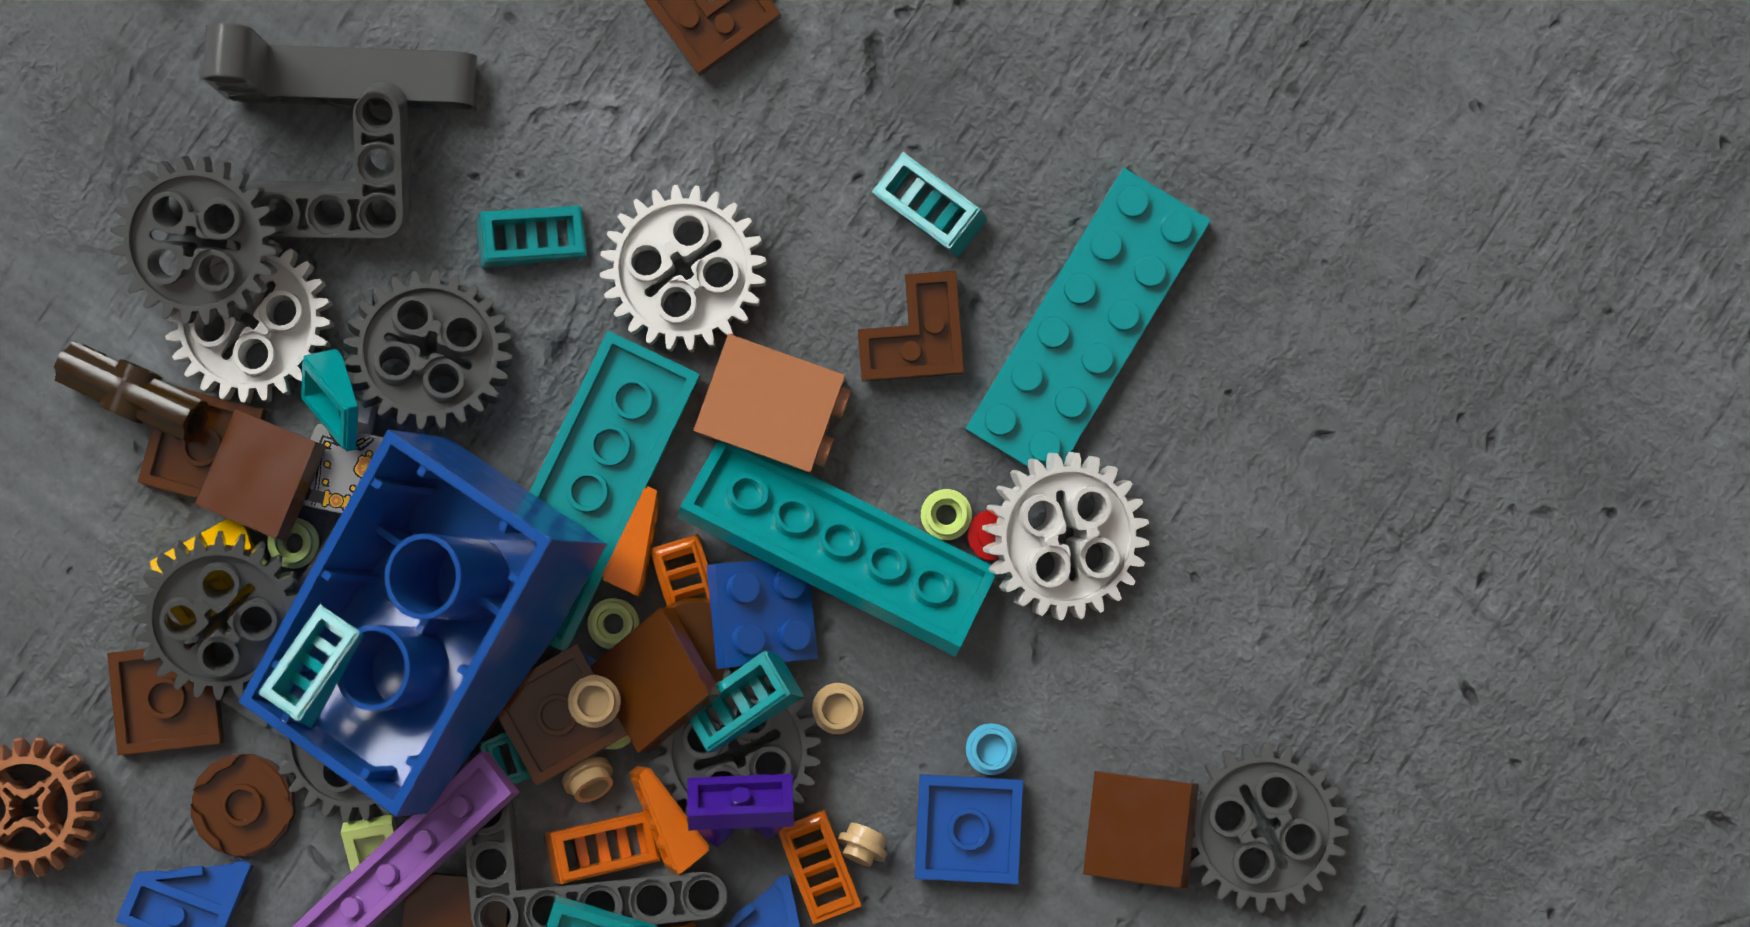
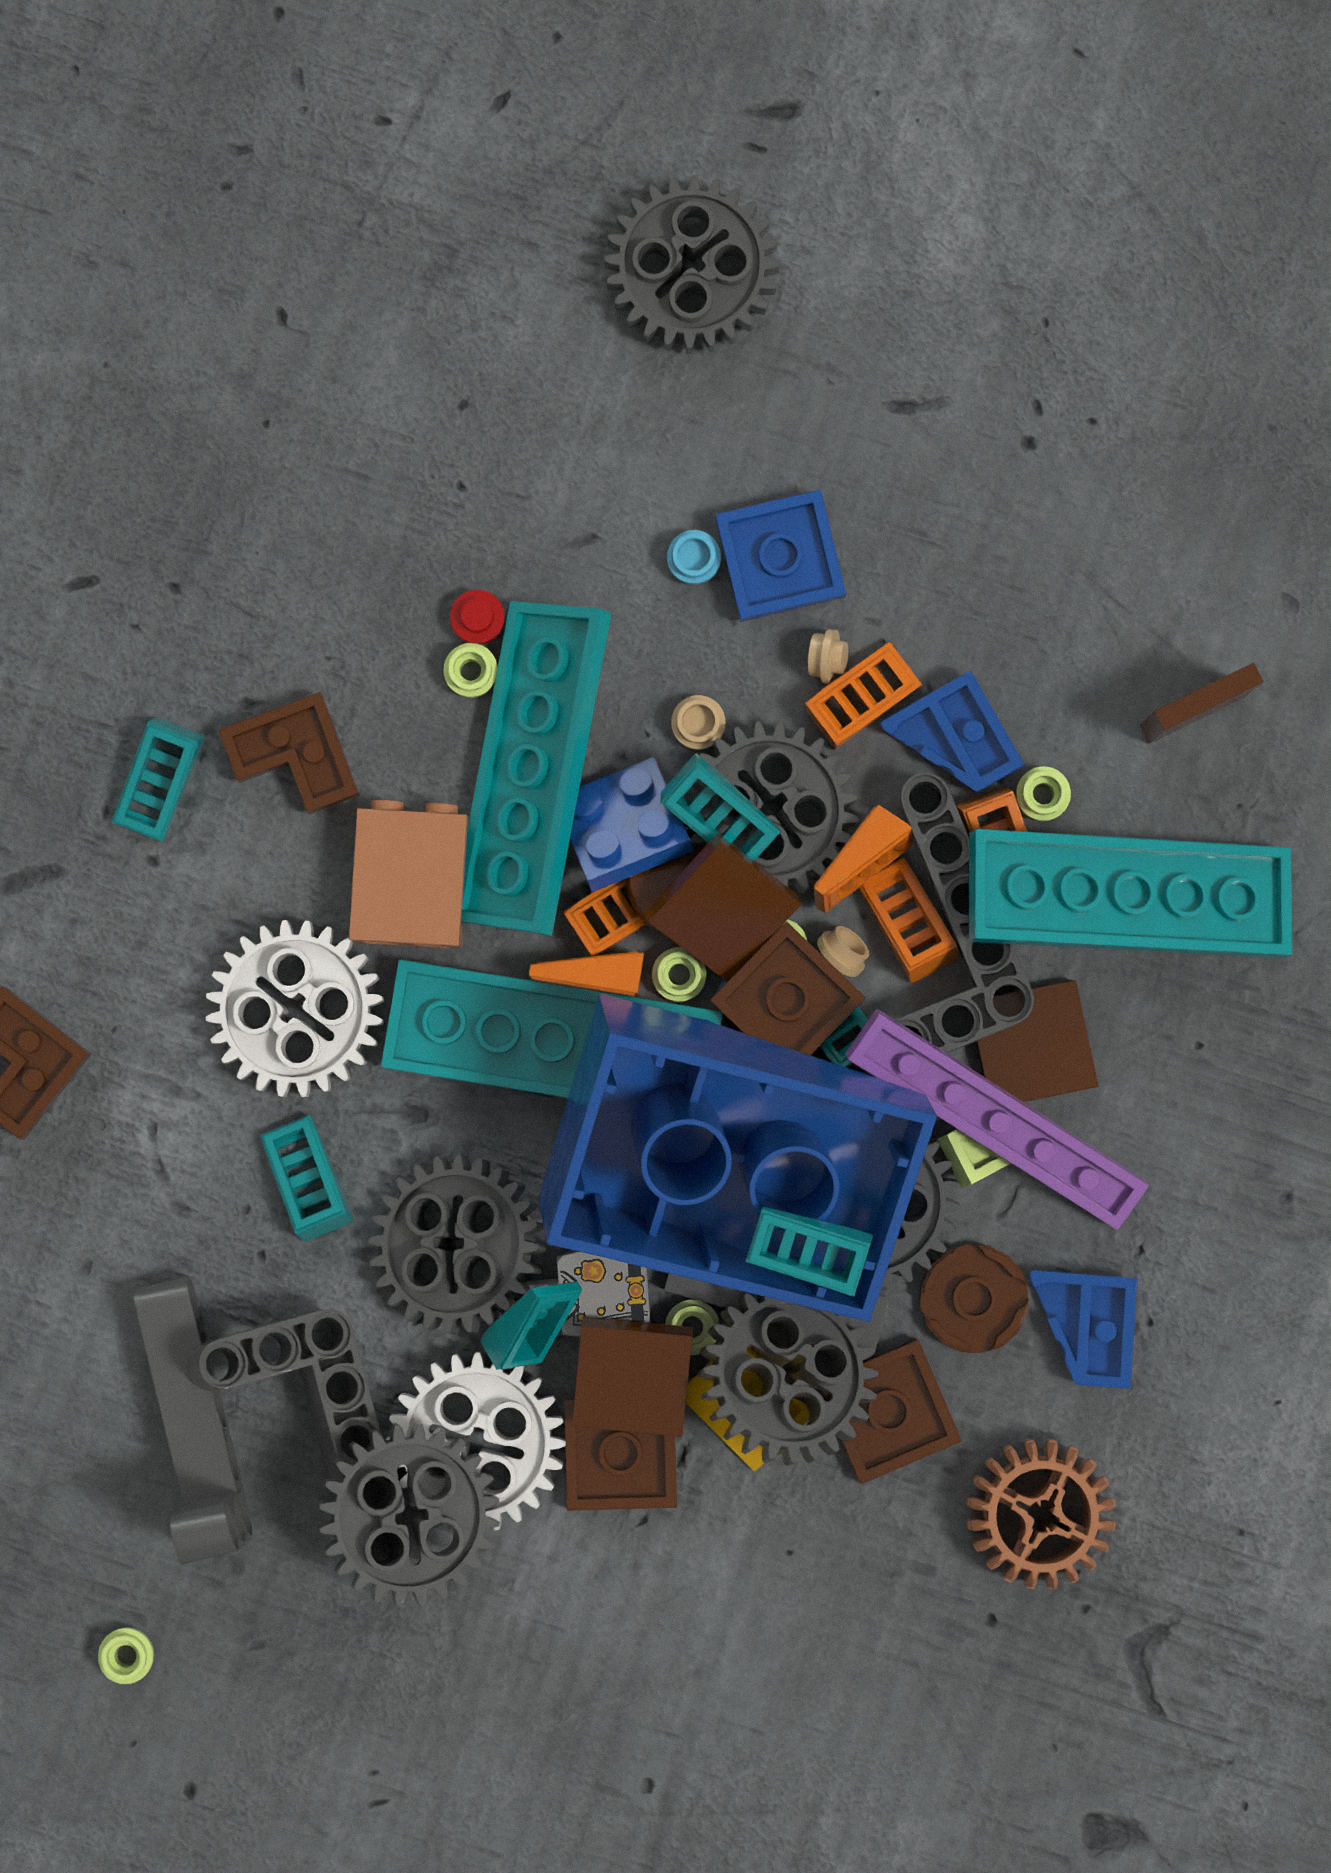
camera: 110 degrees left, 0 degrees up
(131, 391) = (584, 1540): dark brown piece -> none
(594, 701) = (762, 962): tan plate -> none
(739, 802) = (821, 784): dark purple tile -> none
(1088, 322) = (236, 583): teal plate -> none
(1109, 525) = (434, 503): white gear -> none
(1141, 829) = (730, 383): reddish brown tile -> none

